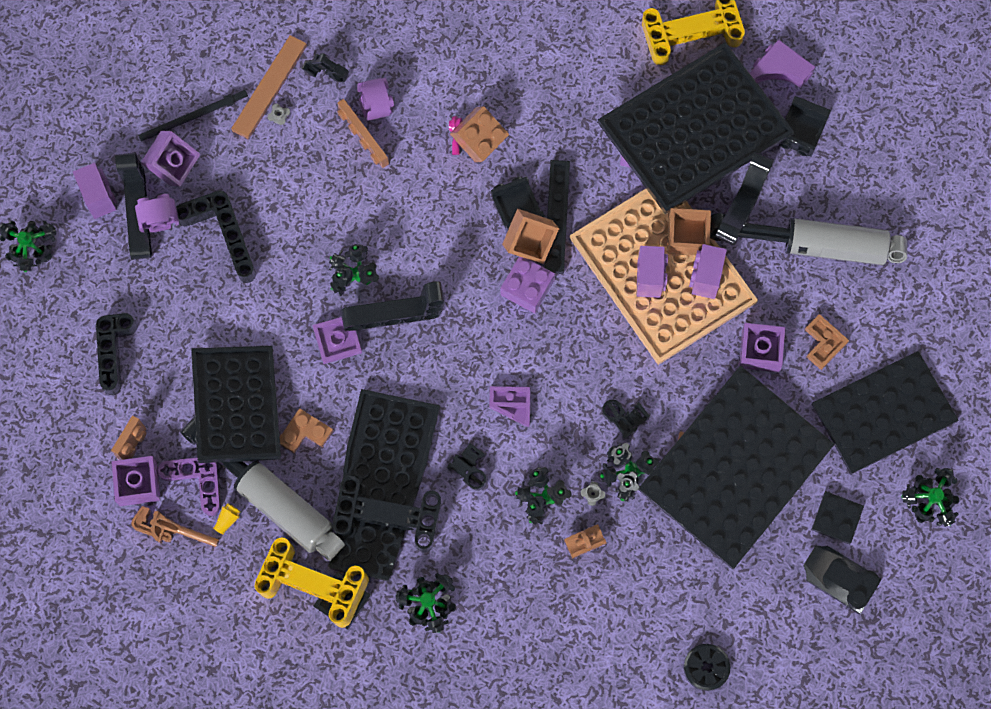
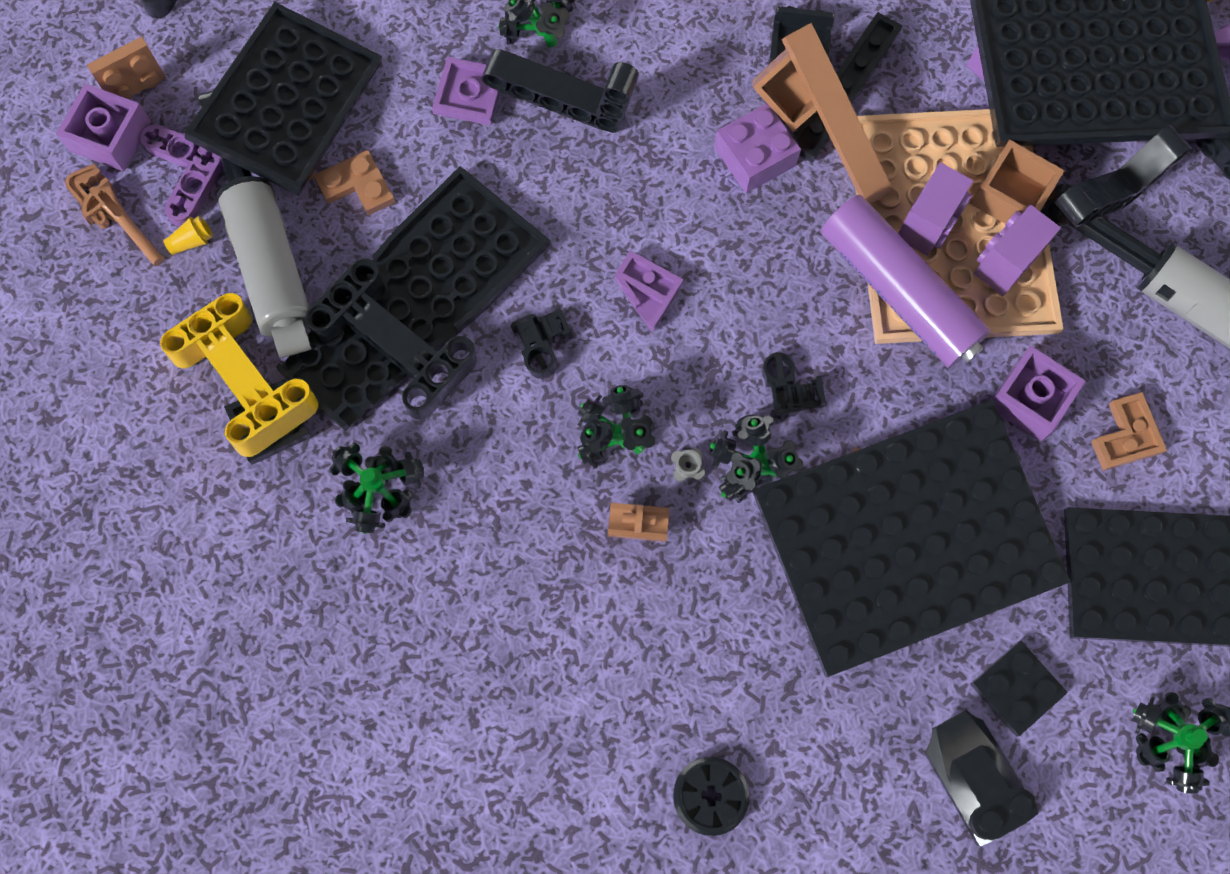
camera: 25 degrees right, 0 degrees up
(566, 244) = (837, 113): none -> nougat tile
(656, 323) = (905, 282): none -> medium lavender piece

